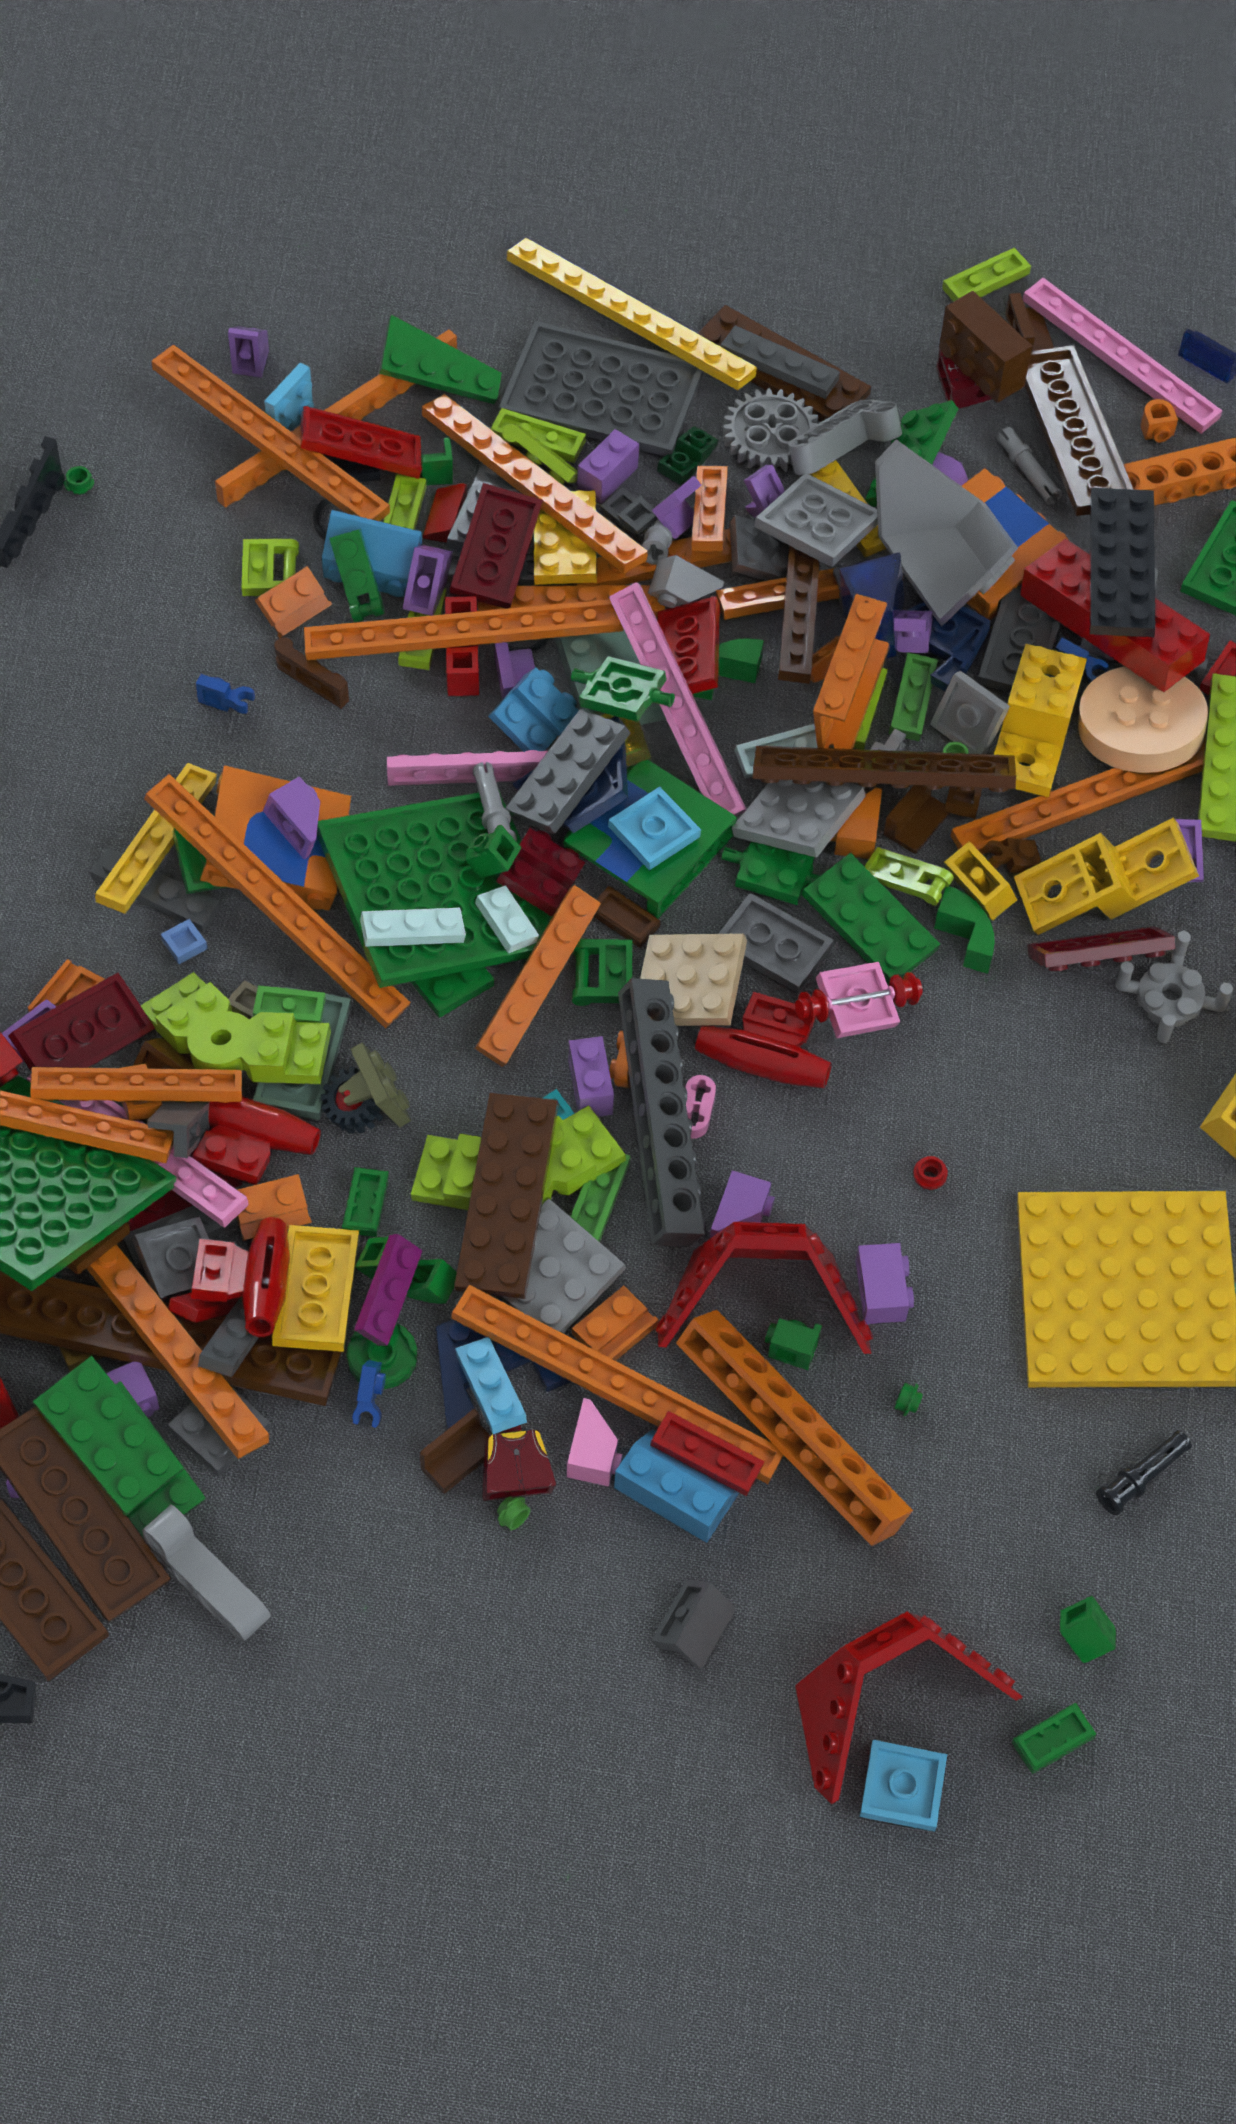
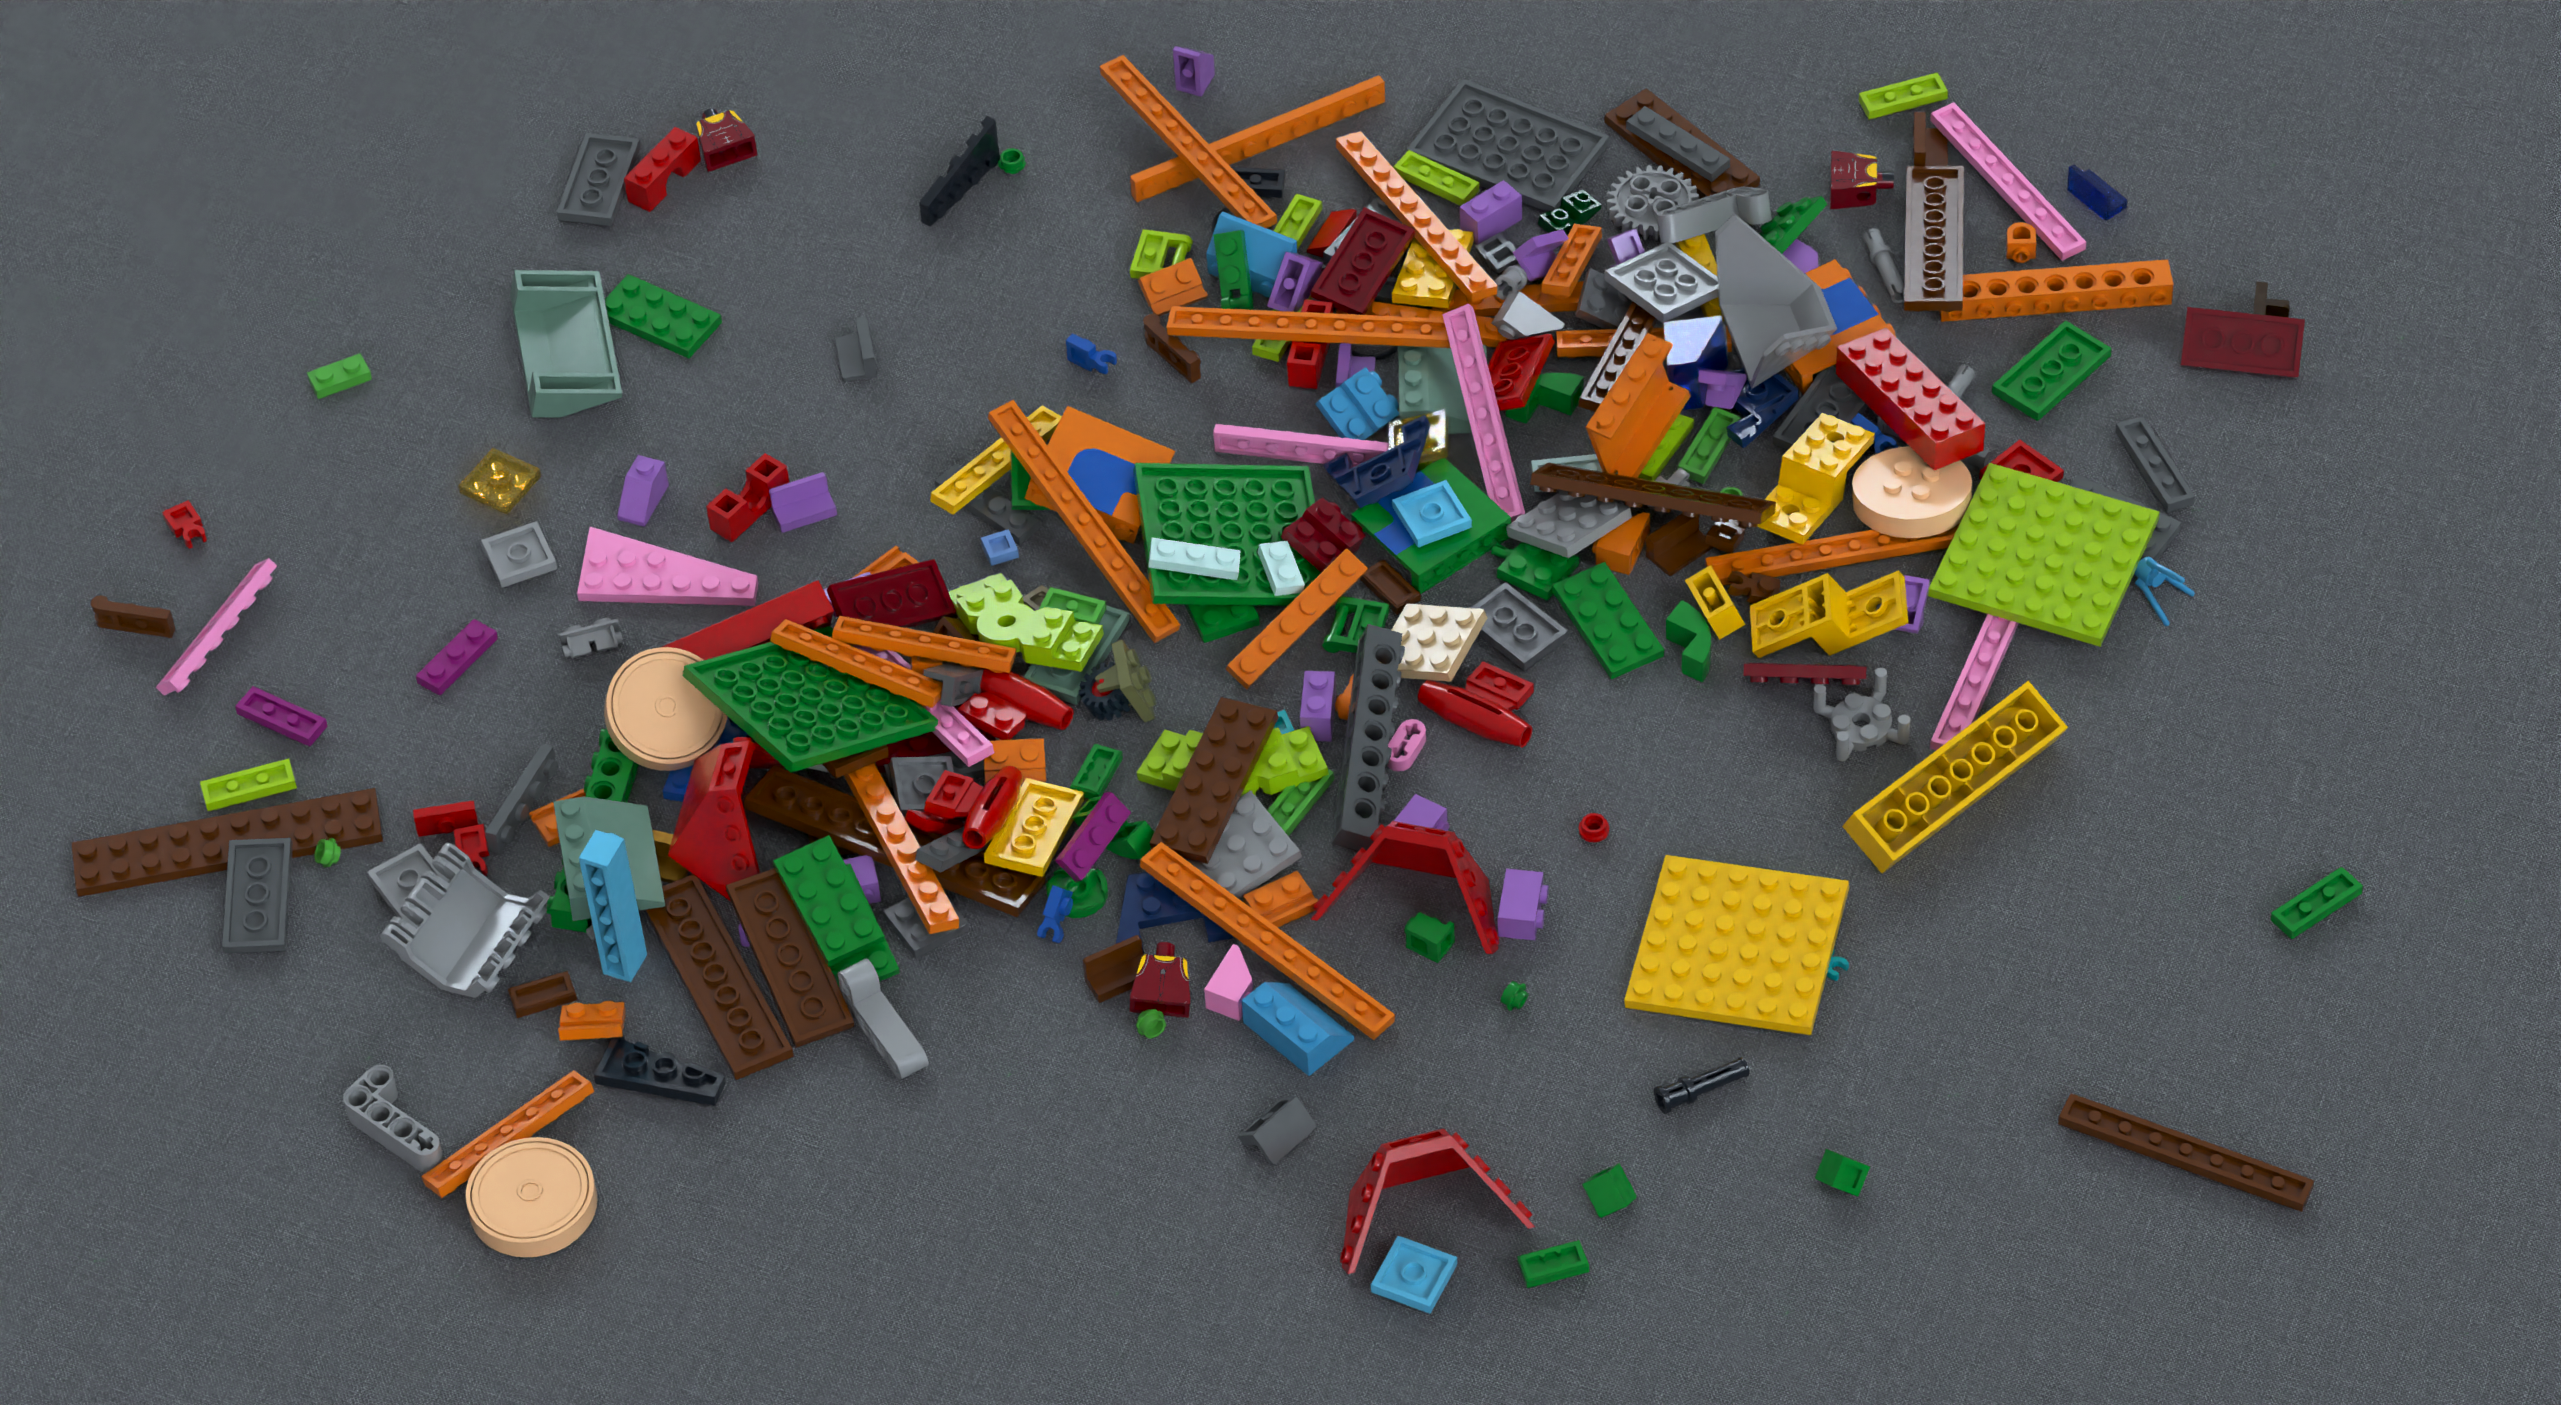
camera: 20 degrees right, 10 degrees down
(290, 397) = (1217, 115): medium azure plate -> none
(295, 814) = (1117, 453): medium lavender slope -> none
(360, 442) = (1269, 160): red tile -> none
(430, 362) = (1353, 101): green wing -> none
(438, 467) = (1336, 193): green panel -> none
(491, 801) = (1296, 485): light grey pin -> none
(491, 1385) = (1156, 919): medium azure plate -> none
(492, 852) = (1281, 510): green brick -> none
(539, 453) = (1430, 192): lime plate -> none
(567, 771) = (1368, 455): dark grey plate -> none
(622, 688) = (1434, 393): green plate -> none
(632, 314) = (1555, 84): yellow plate -> none
(707, 1453) = (1324, 1001): red plate -> none
(794, 1427) = (1406, 997): orange brick -> none
(858, 999) = (1572, 679): bright pink plate -> none
(909, 875) = (1651, 587): lime plate -> none
(969, 714) = (1750, 463): light grey plate -> none
(985, 346) = (1865, 152): reddish brown brick -> none
(1122, 562) = (1924, 351): black plate -> none

